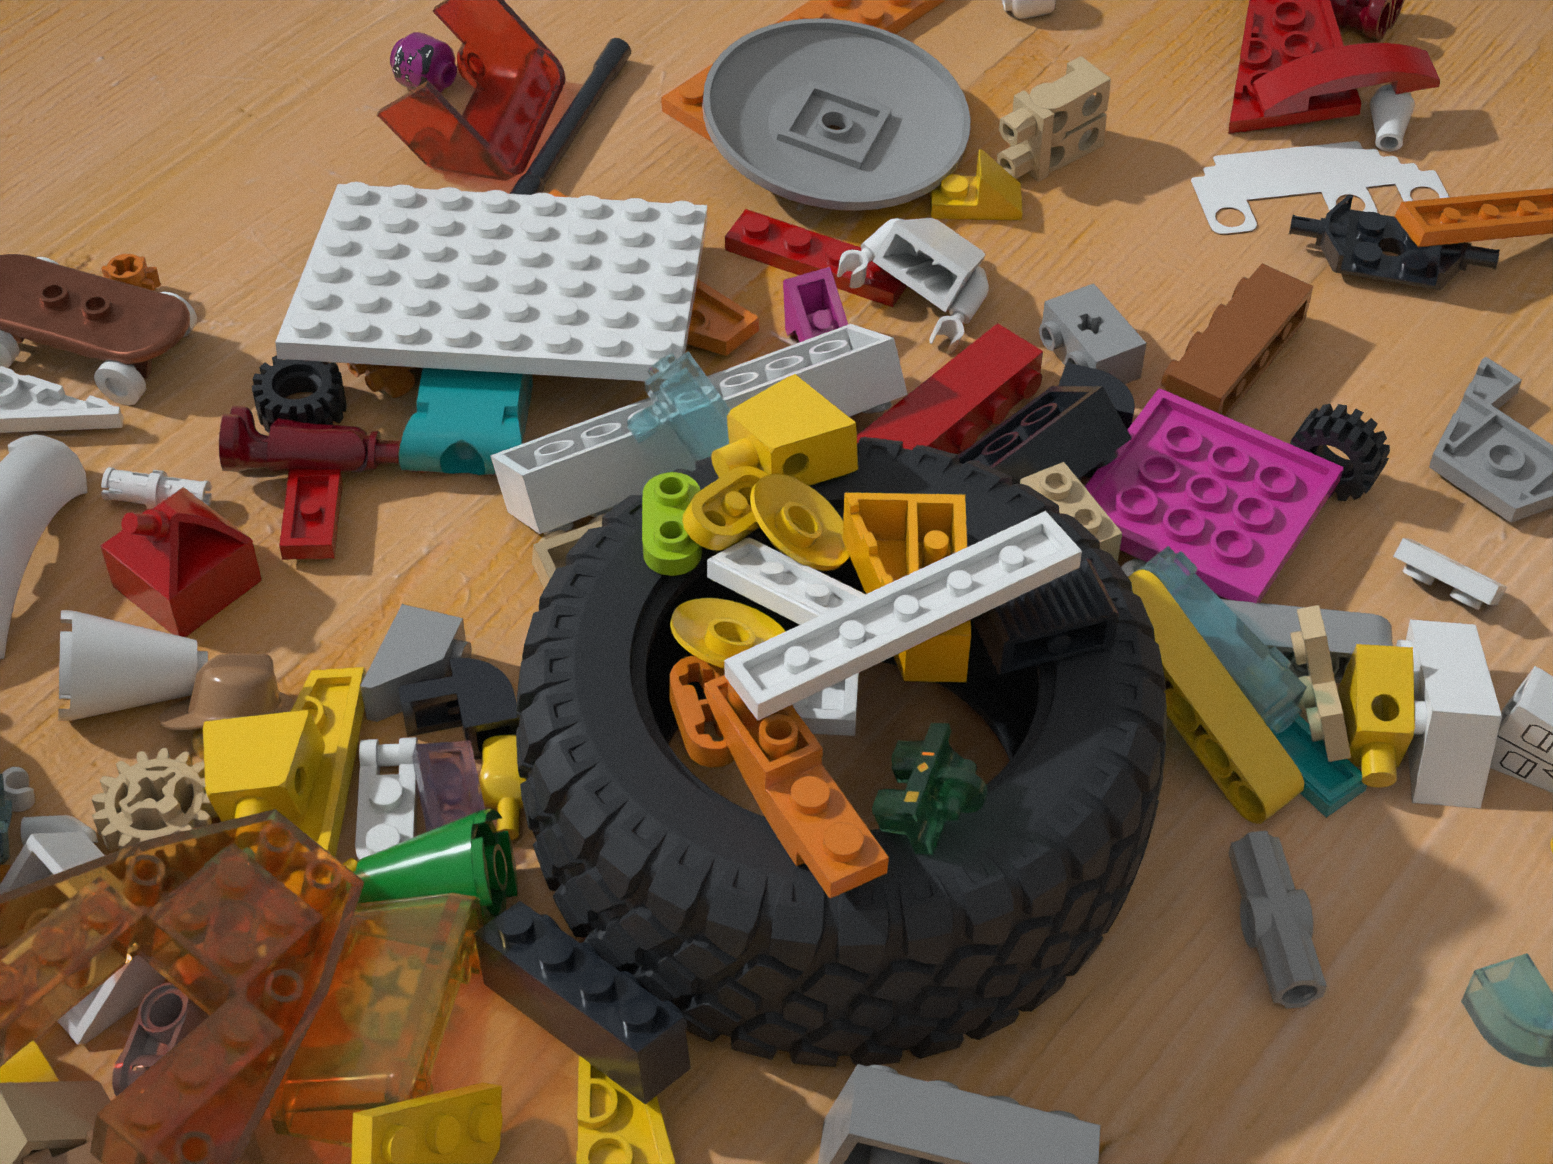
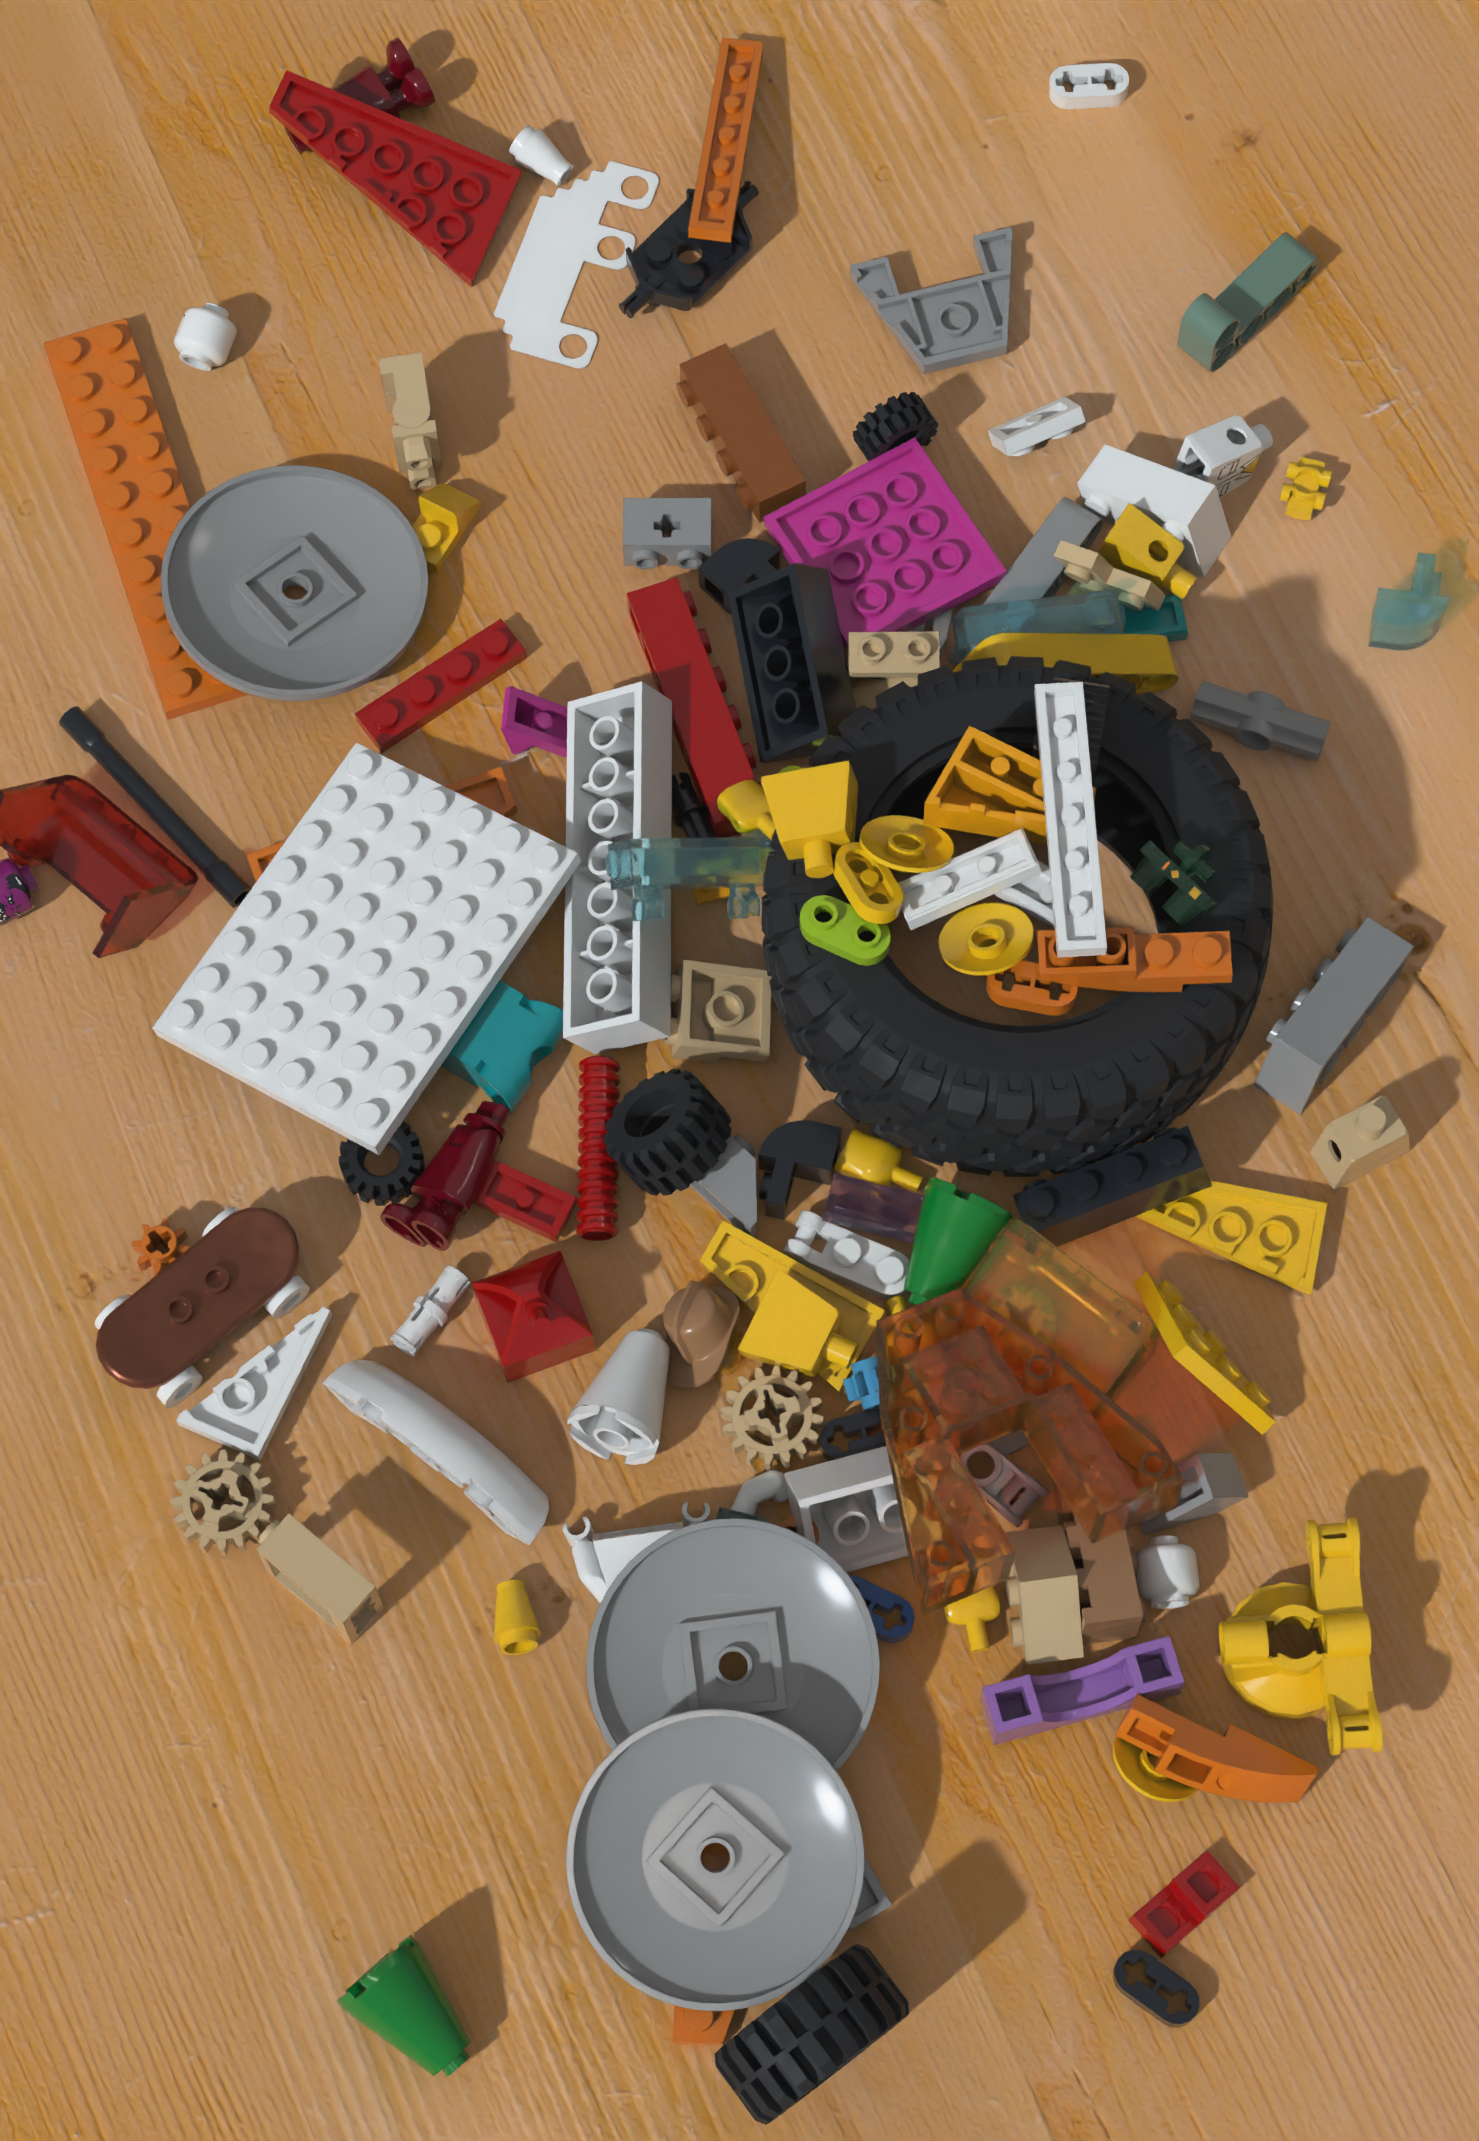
camera: 60 degrees left, 20 degrees up
(397, 544) = (597, 1170): none -> red piece
(427, 570) = (667, 1132): none -> black tyre
(929, 261) = (526, 604): white torso -> none
(1342, 69) = (496, 167): red slope -> none

